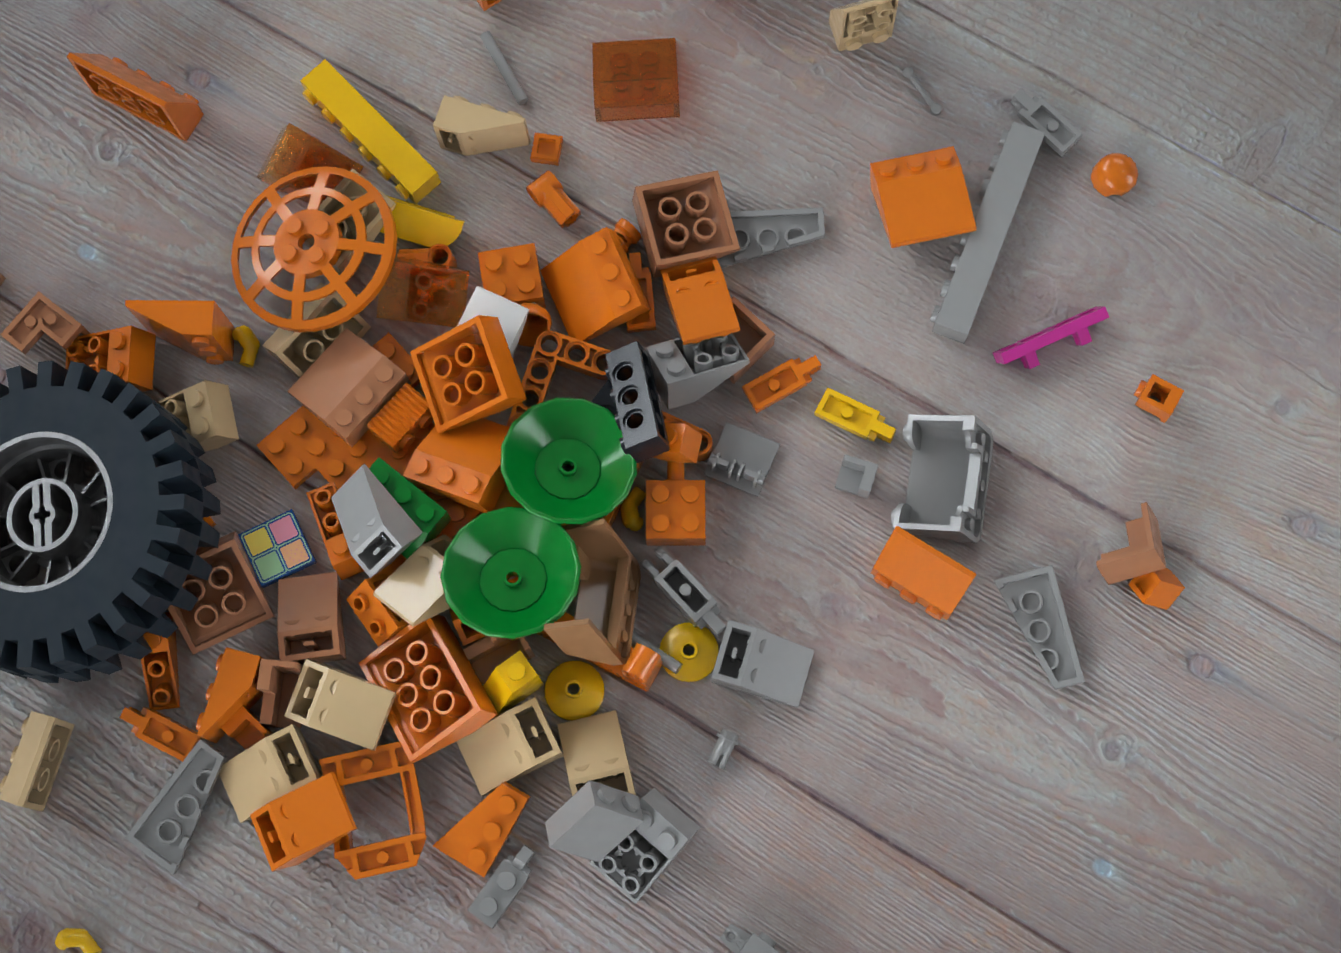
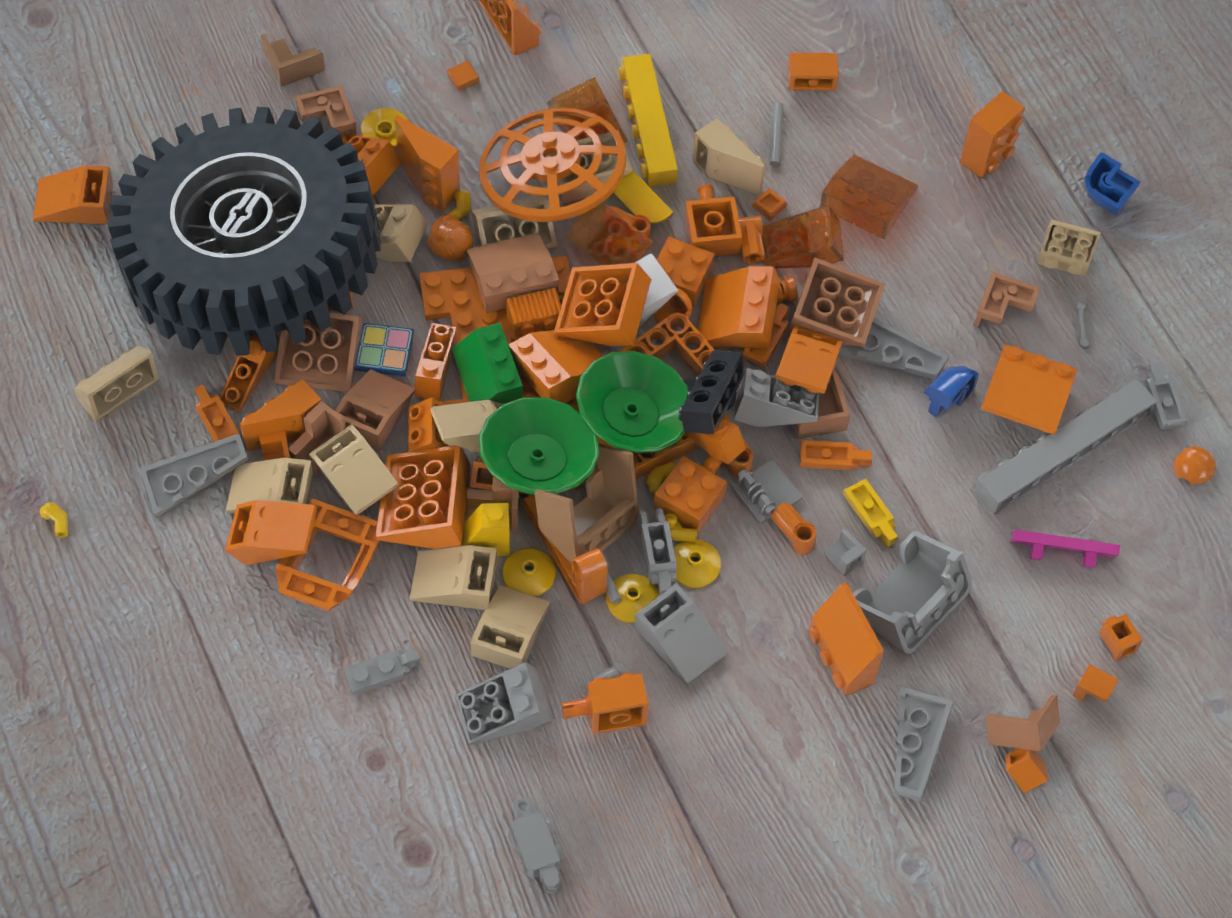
camera: 25 degrees right, 15 degrees down
(104, 300) = (381, 121): none -> yellow dish
(151, 197) = (463, 75): none -> orange tile
(261, 388) = (450, 238): none -> orange hair
(372, 522) = (465, 363): light grey slope -> none
(485, 829) = (396, 620): orange wing -> none
(509, 208) = (713, 223): none -> orange brick
(594, 821) = (479, 655): light grey brick -> none
(606, 170) = (801, 238): none -> clear orange slope
(686, 556) = (679, 533): none -> yellow arm
(732, 589) = (696, 573): none -> yellow dish
(746, 781) = (612, 703): none -> orange brick
(791, 481) = (794, 527): none -> orange piece
(830, 111) = (1003, 292): none -> nougat panel
(847, 242) = (951, 387): none -> blue brick
(1167, 462) = (1096, 684): none -> orange panel

